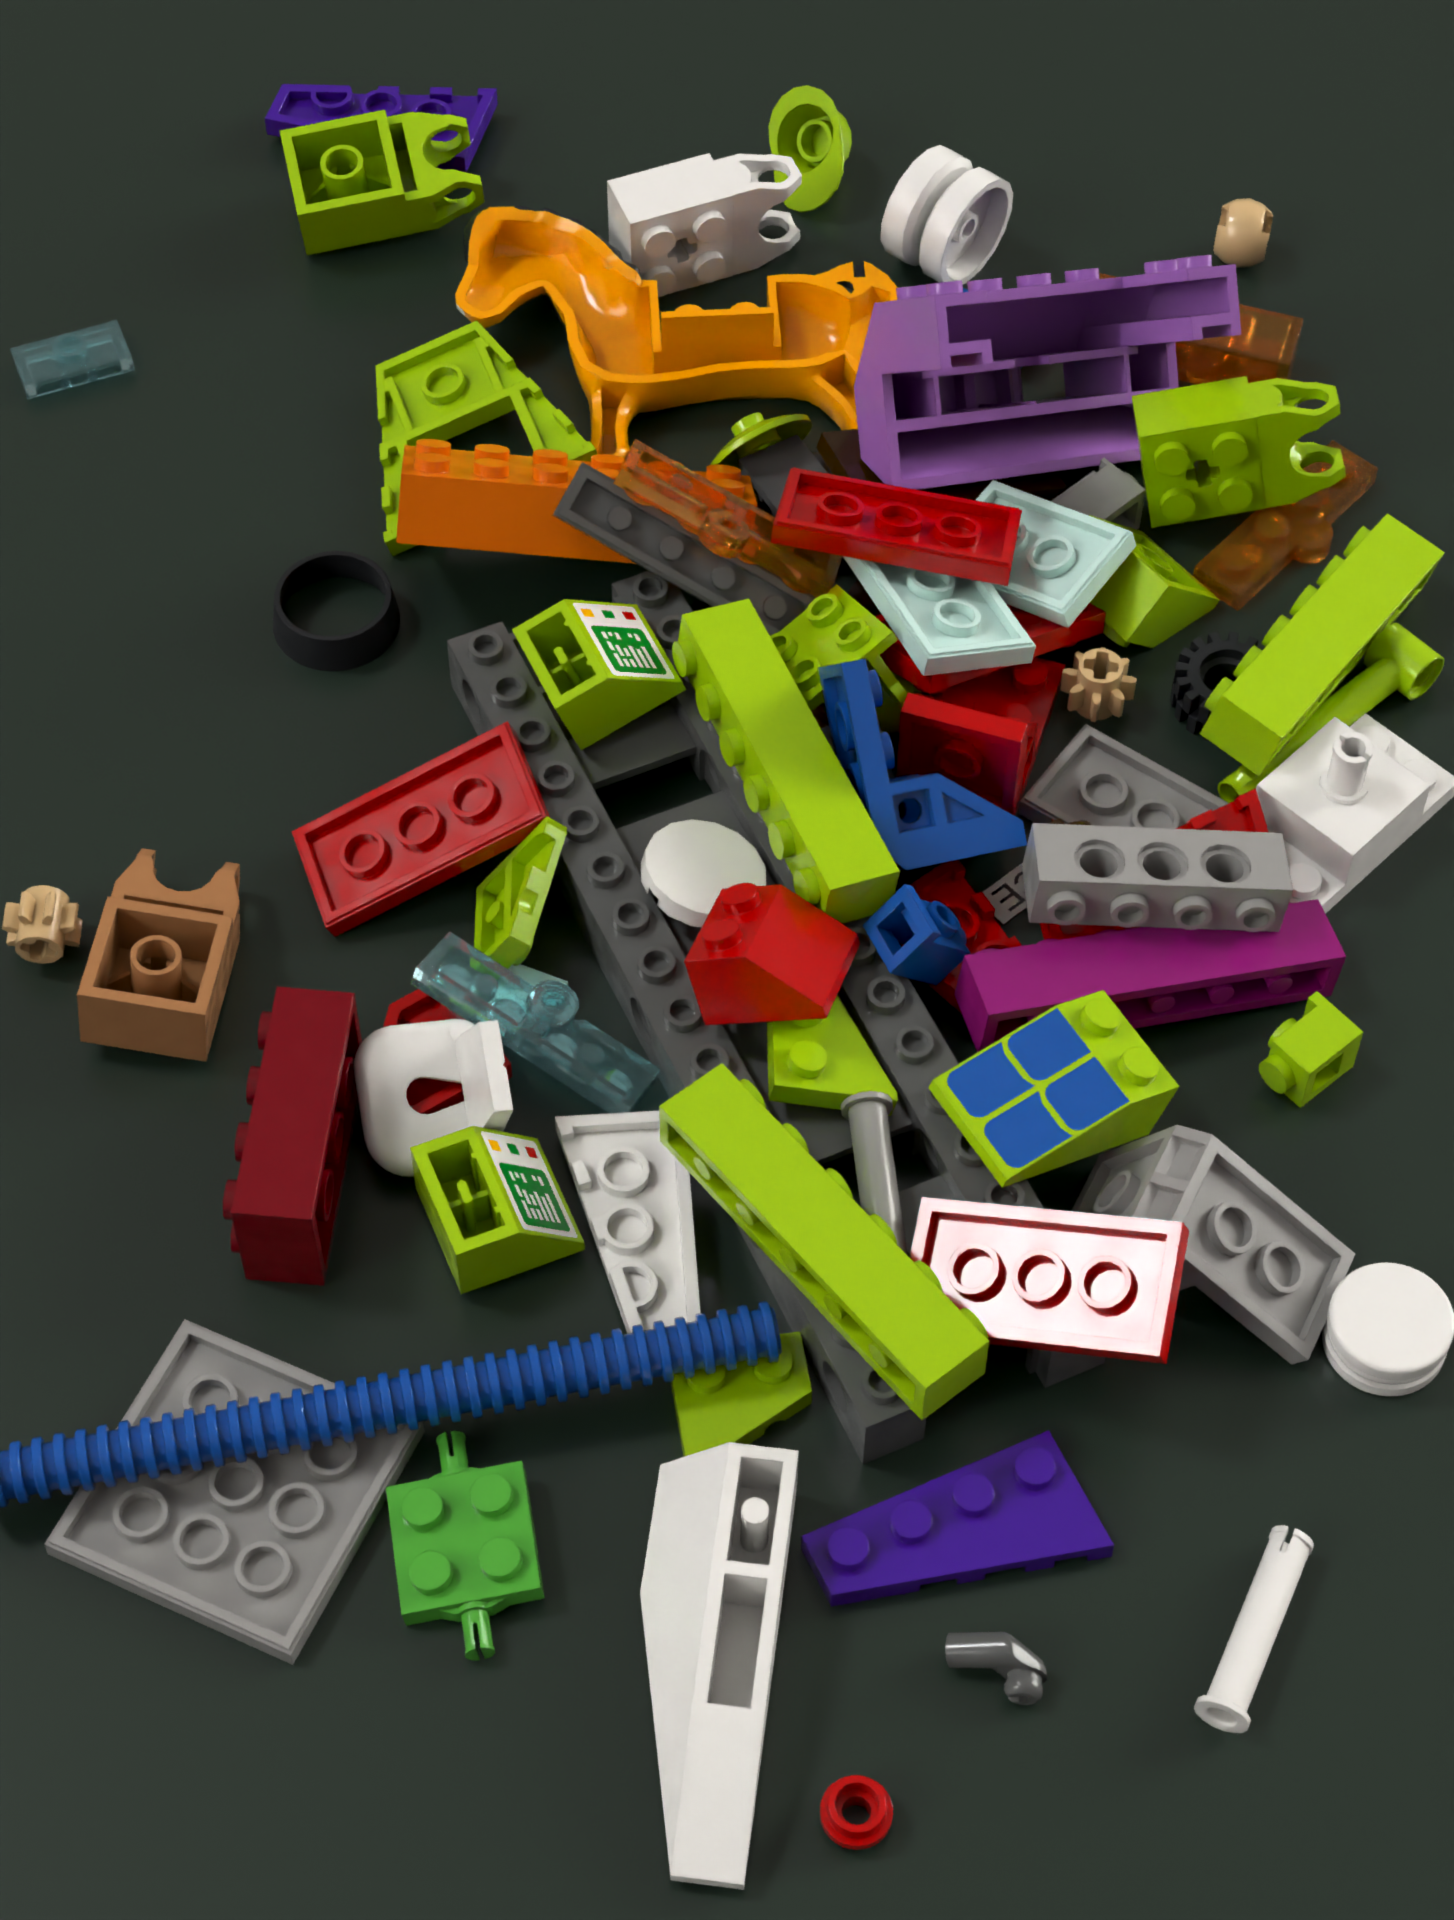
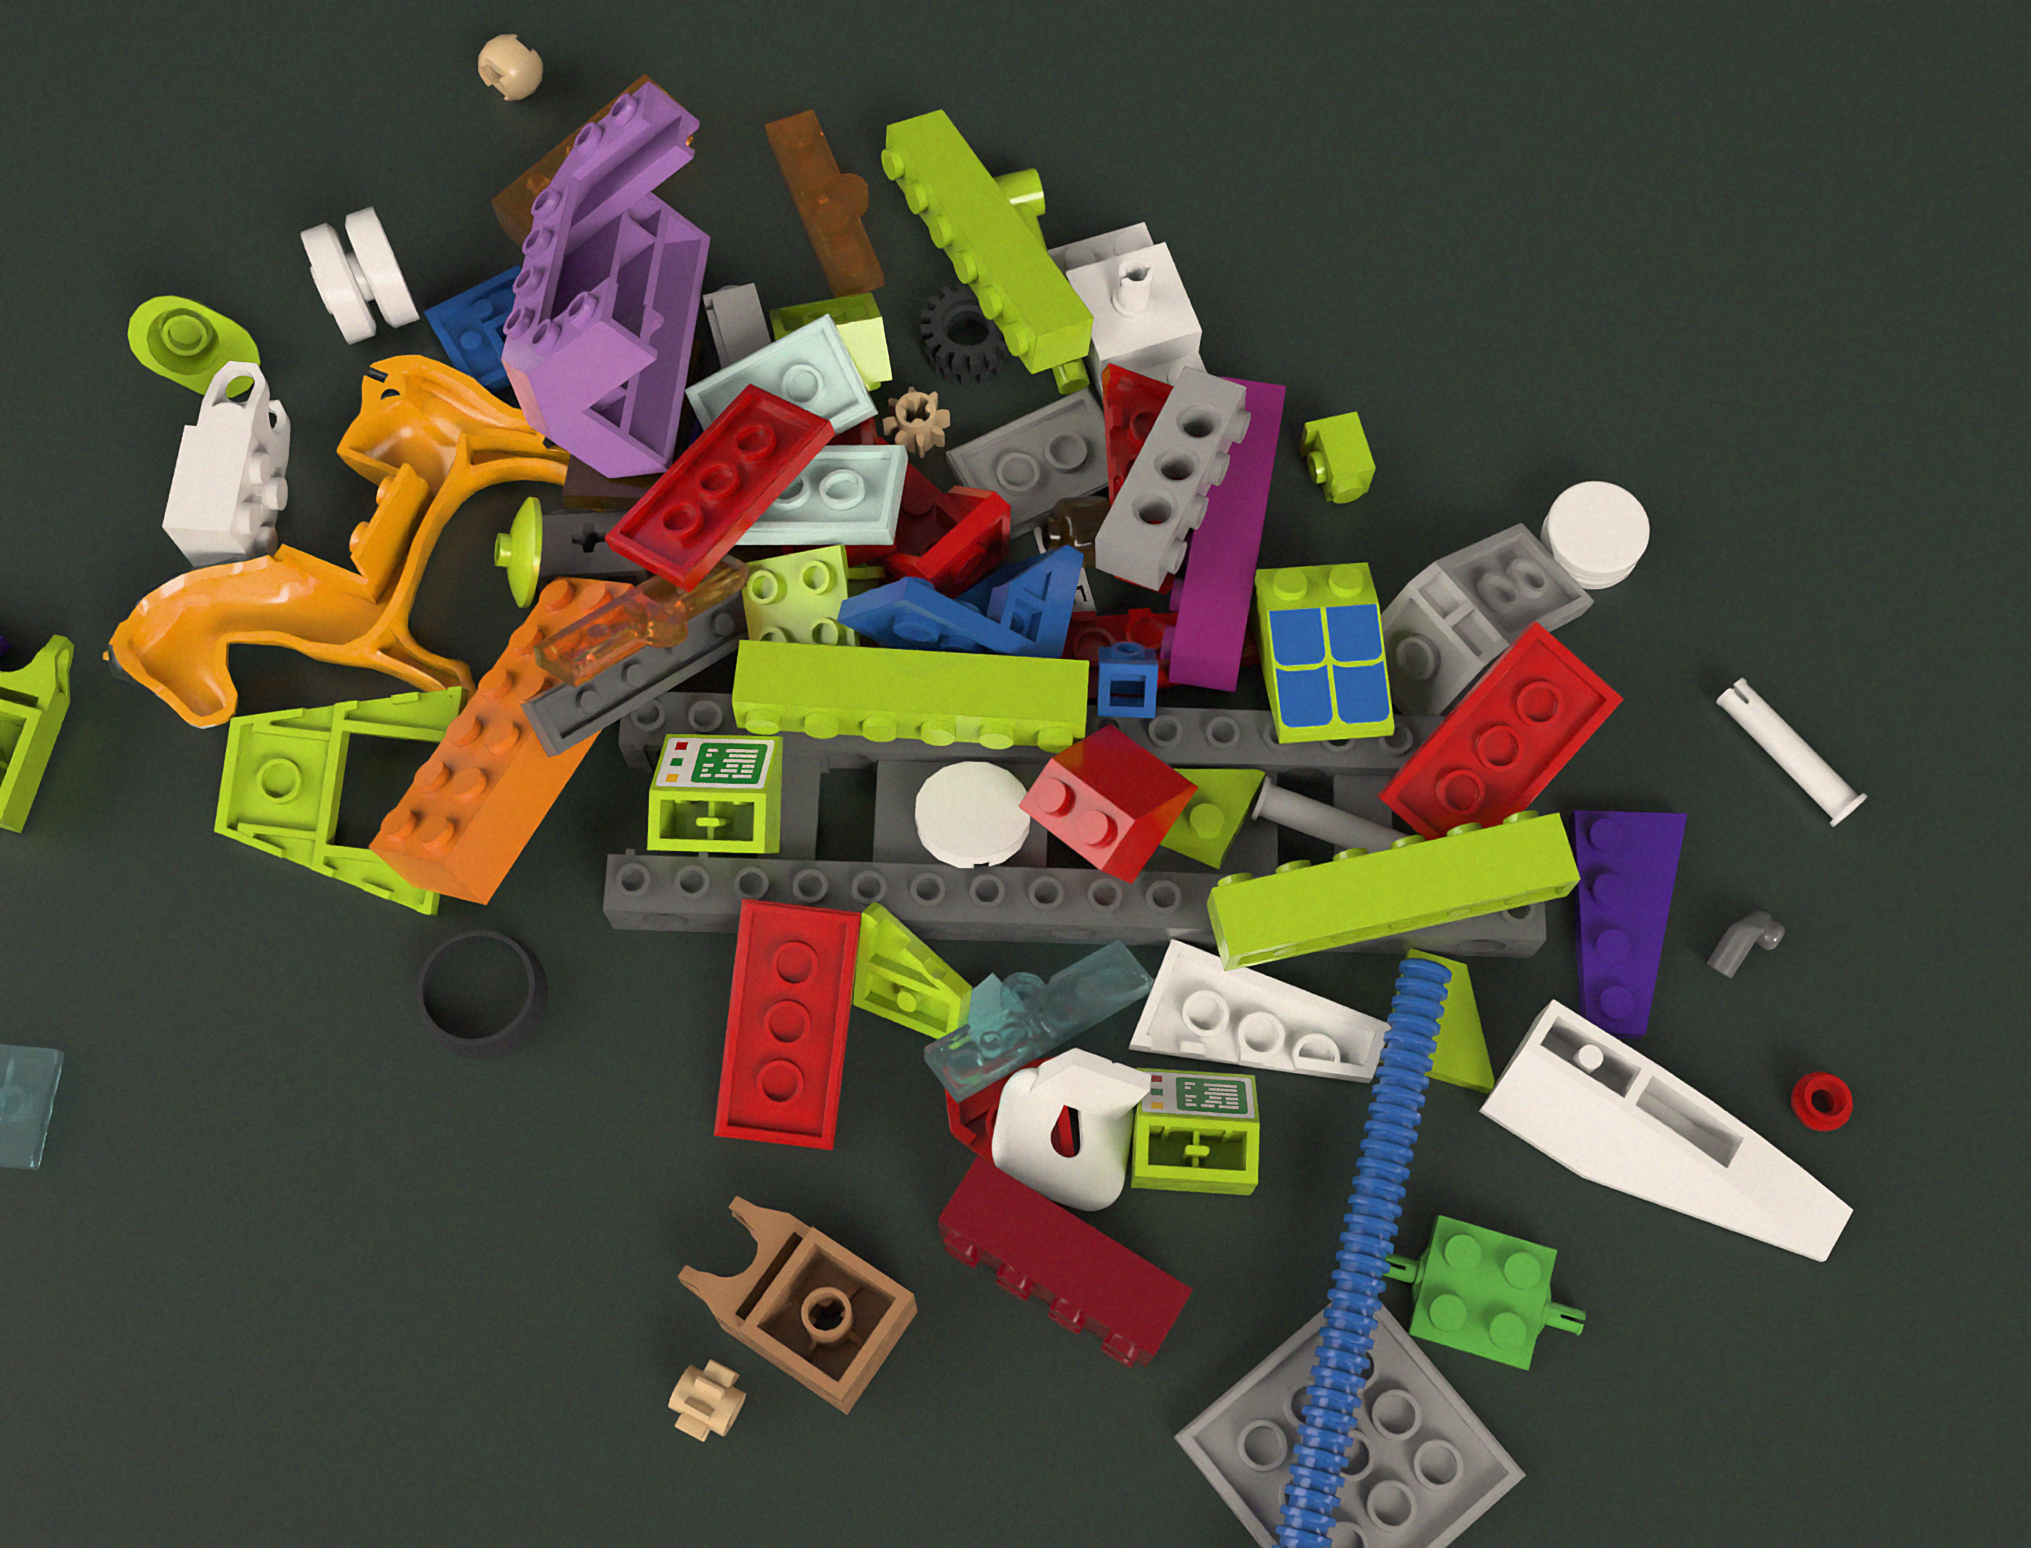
camera: 65 degrees left, 15 degrees up
(1232, 447) = (758, 198): lime brick -> none

